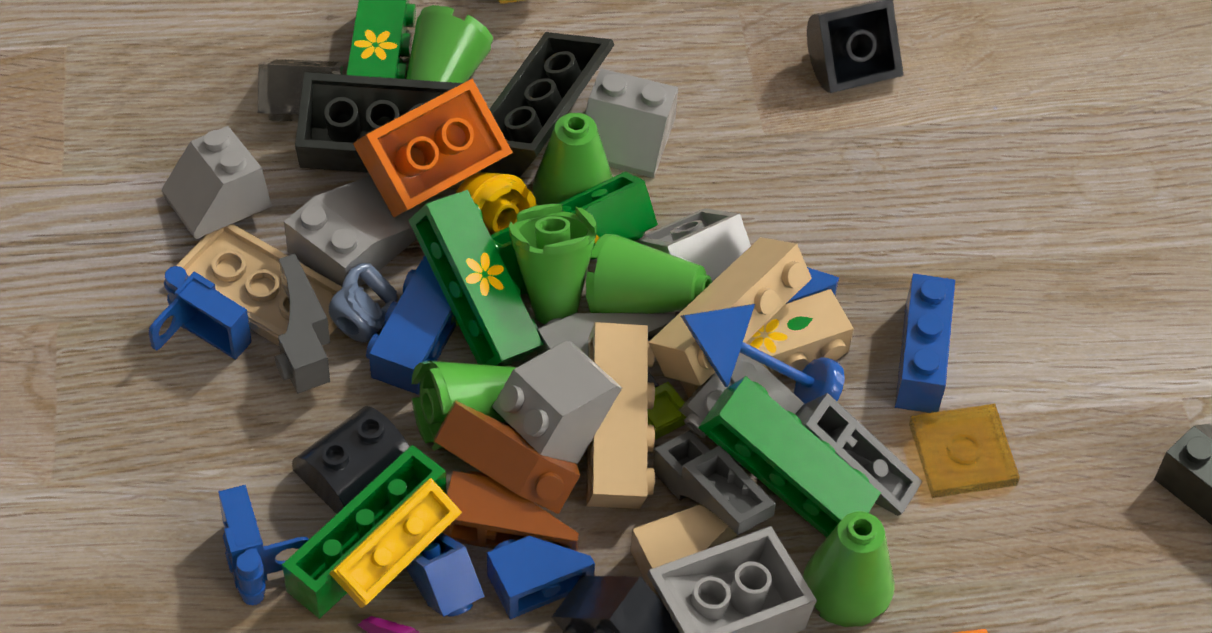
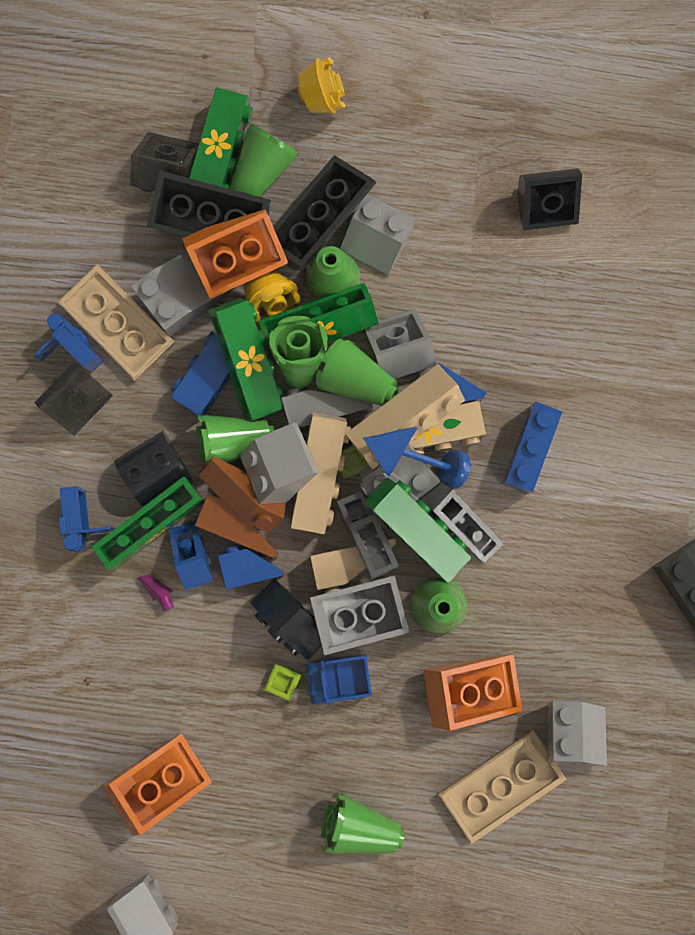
camera: 20 degrees right, 30 degrees up
(216, 183) = (94, 241): light grey slope -> none
(218, 379) = (73, 398): none -> clear smoke tile
(301, 347) = (128, 386): dark grey slope -> none
(355, 310) = (171, 355): sand blue piece -> none
(395, 543) = (161, 544): yellow tile -> none
(964, 450) = (536, 525): clear yellow tile -> none

